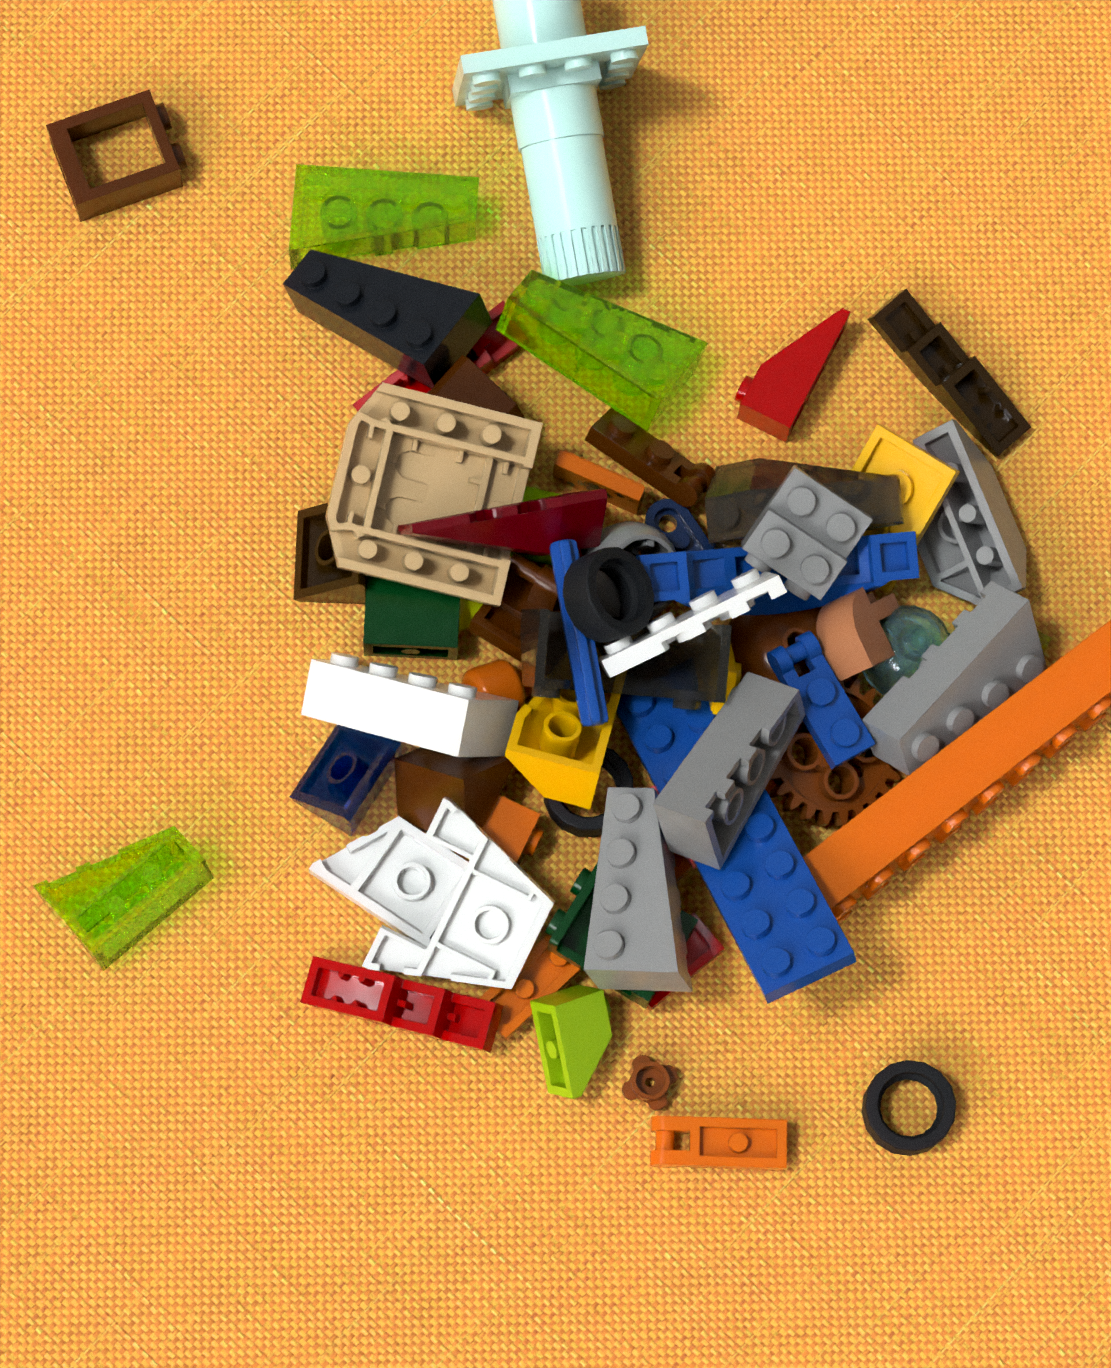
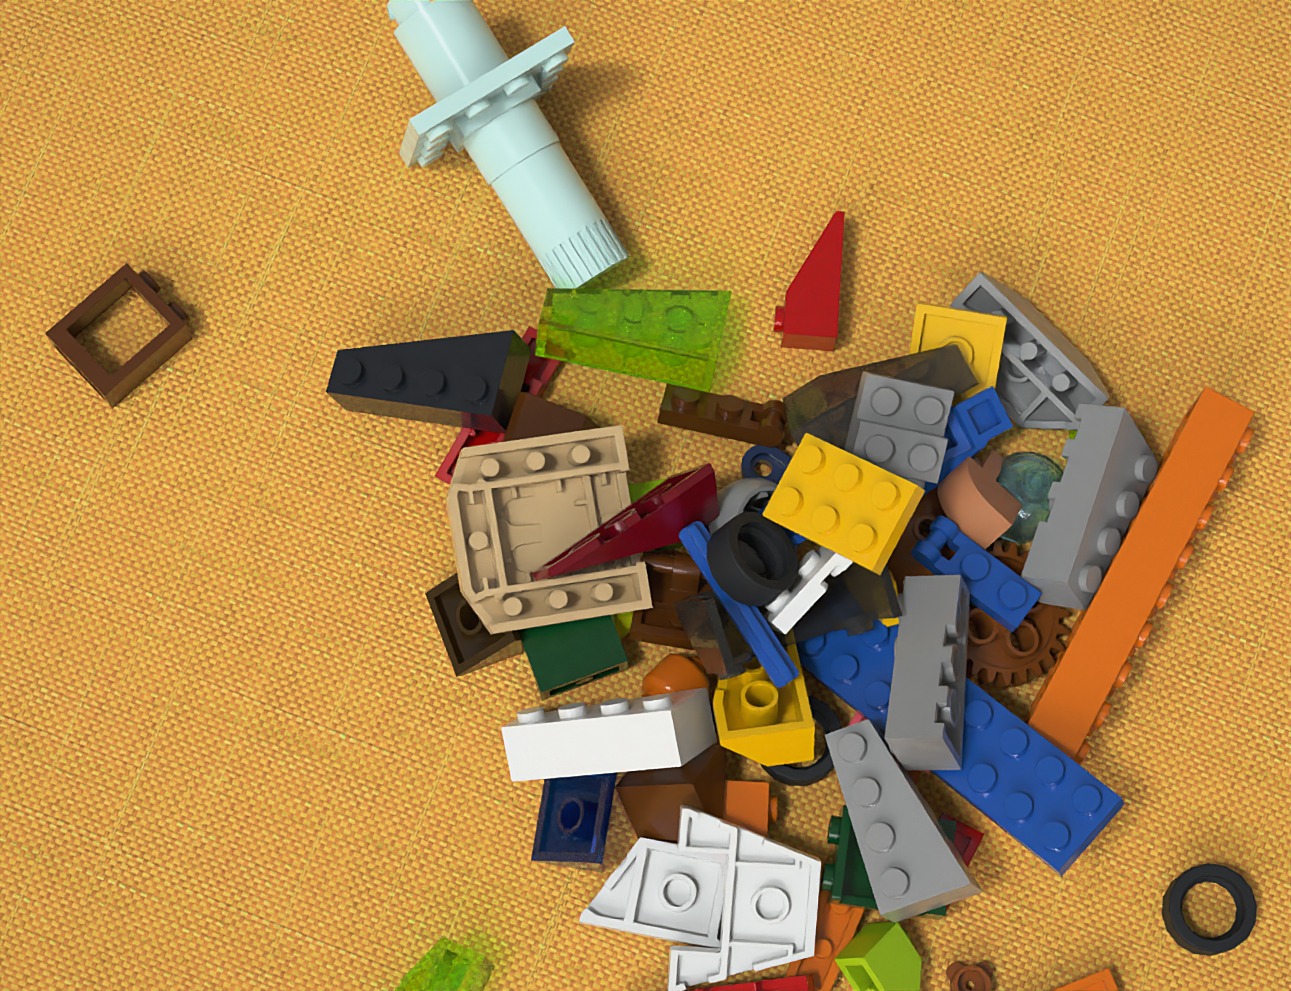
camera: 20 degrees left, 0 degrees up
(378, 211) = (382, 290): clear neon green wedge -> none
(590, 476) = (685, 454): orange tile -> none
(713, 575) = (843, 503): none -> yellow plate
(949, 374) = (951, 232): dark brown slope -> none

